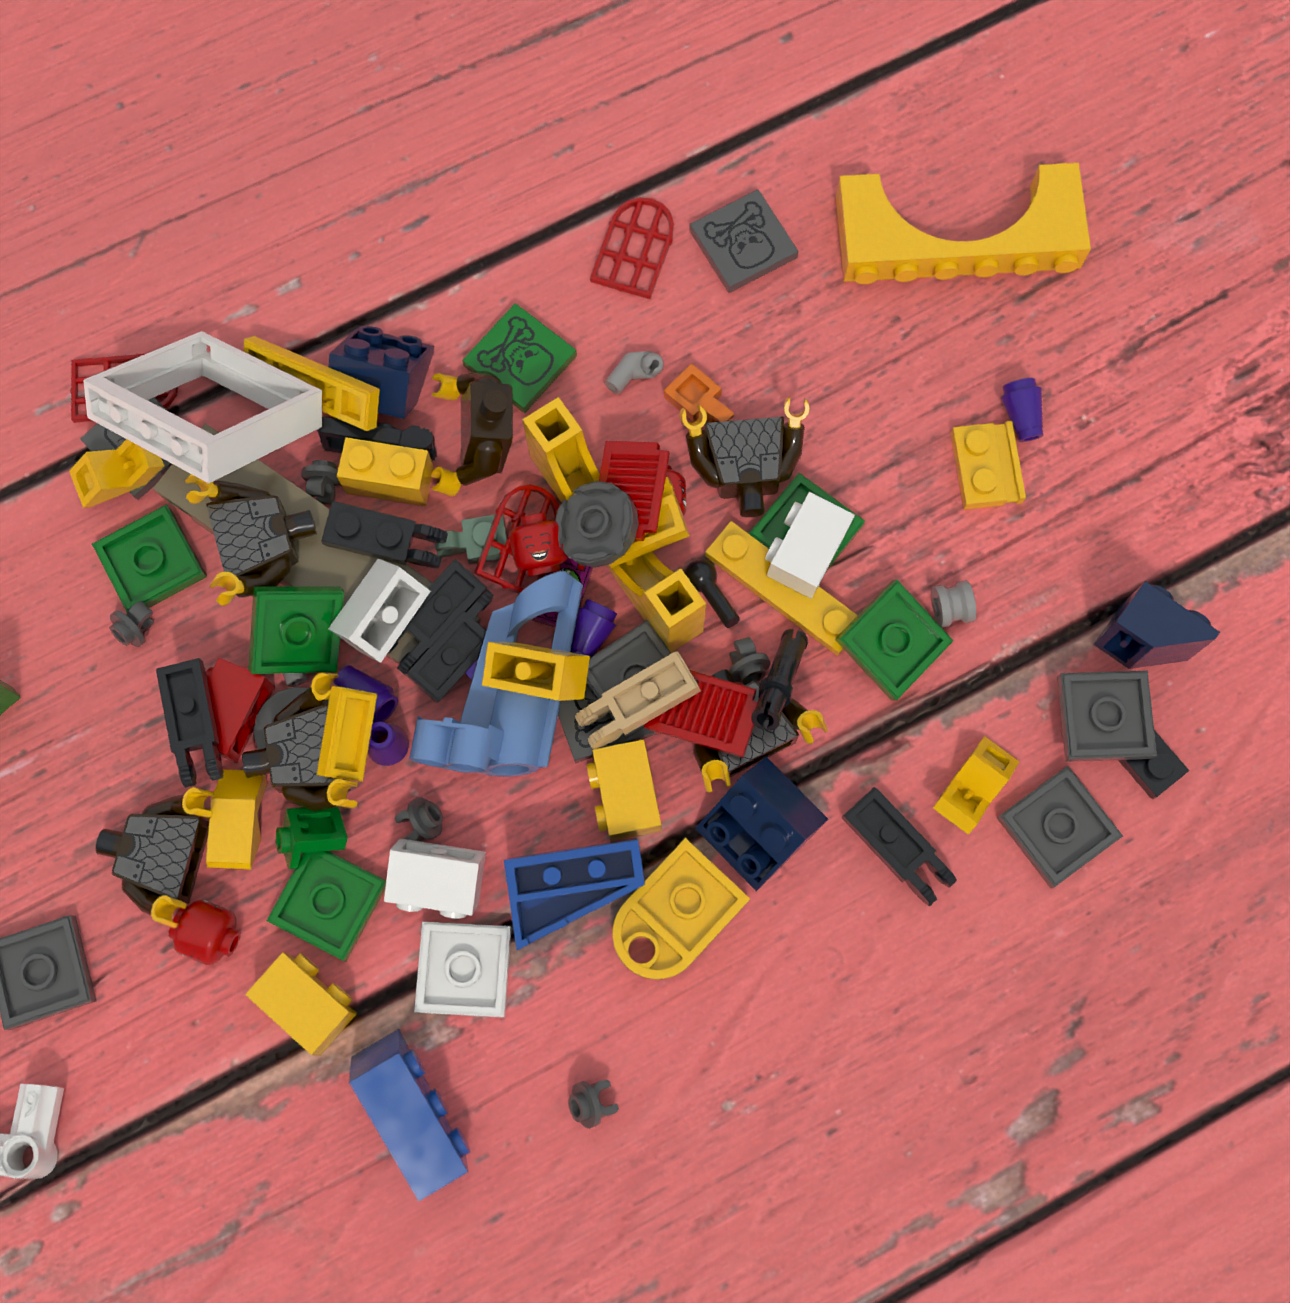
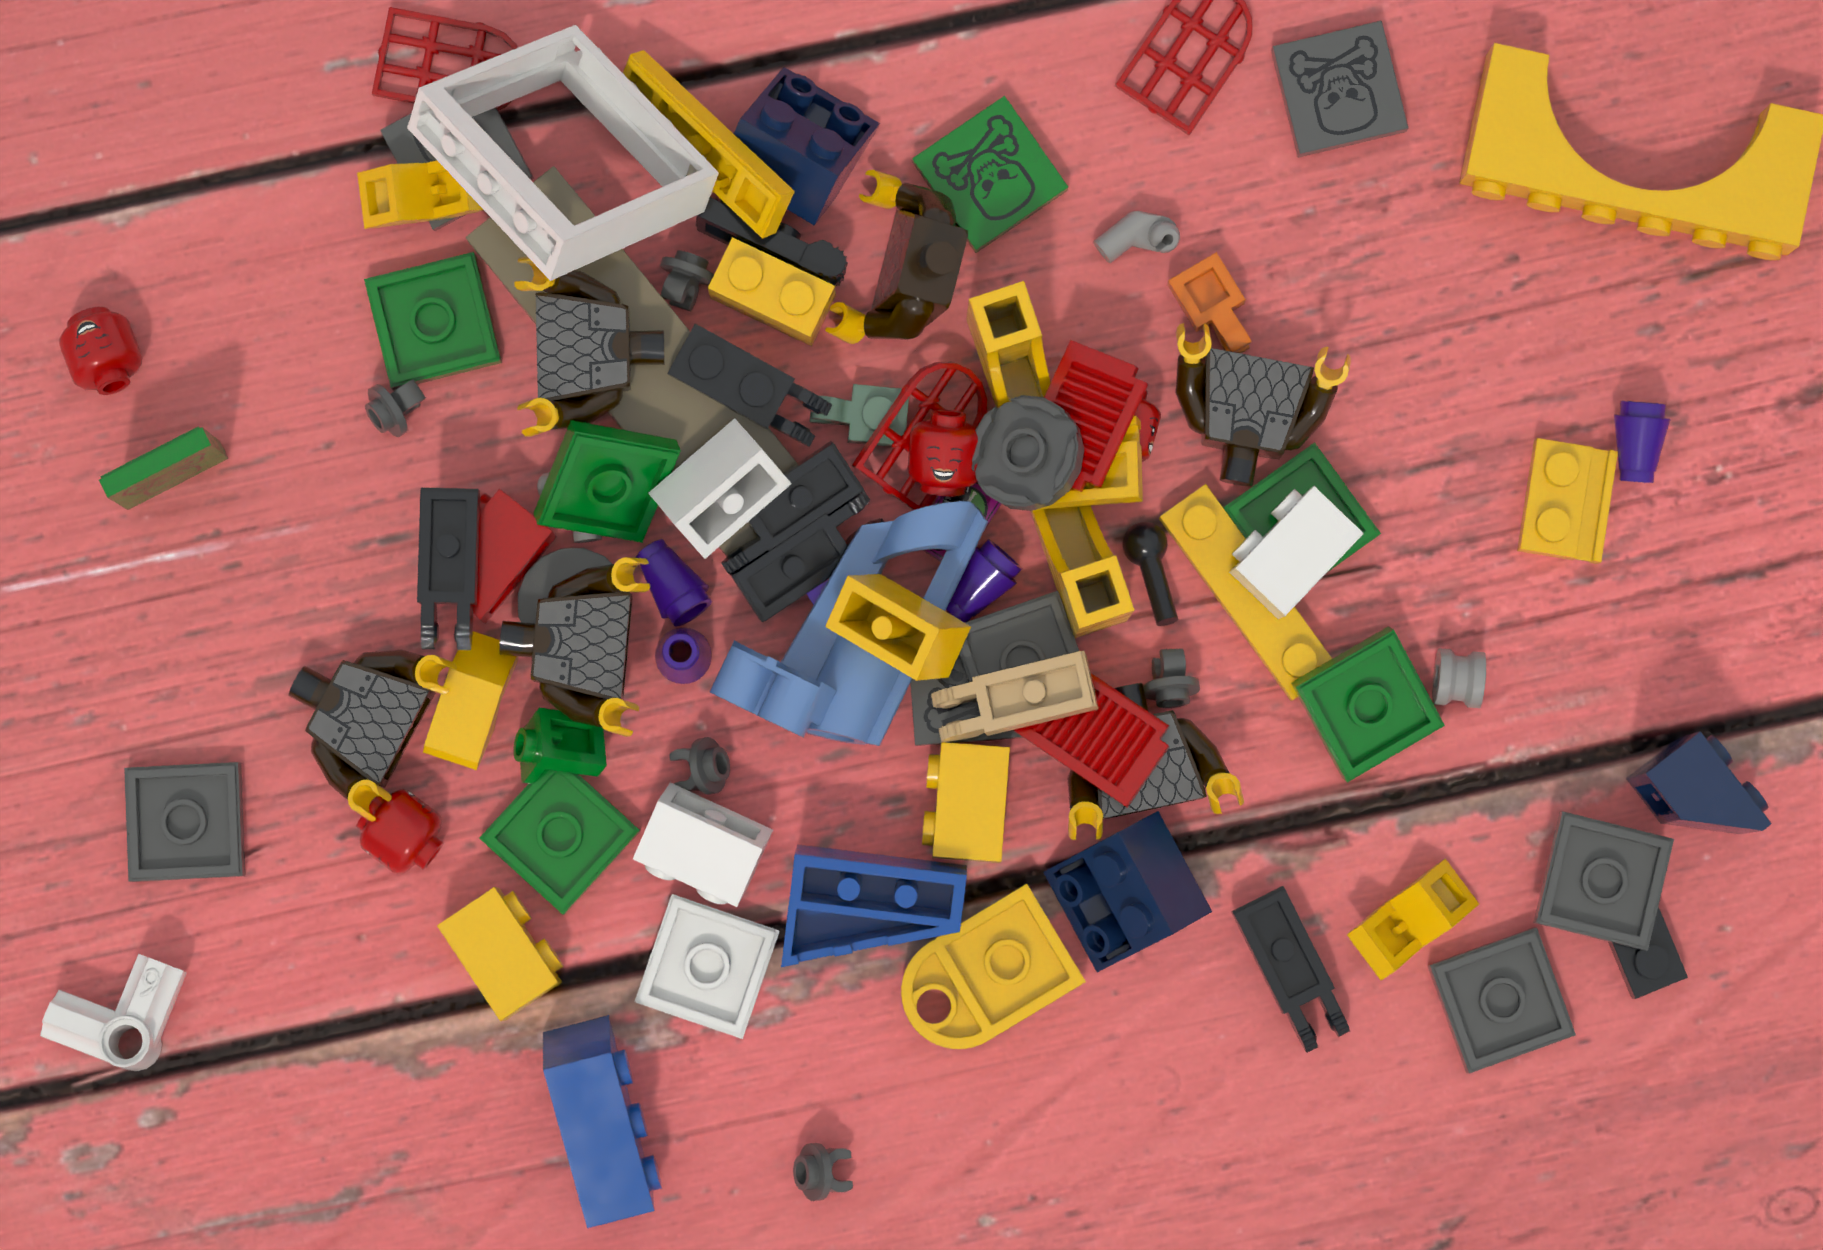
camera: 10 degrees right, 10 degrees up
(346, 734) = (641, 642): yellow tile -> none
(777, 688) = (1194, 733): black pin -> none

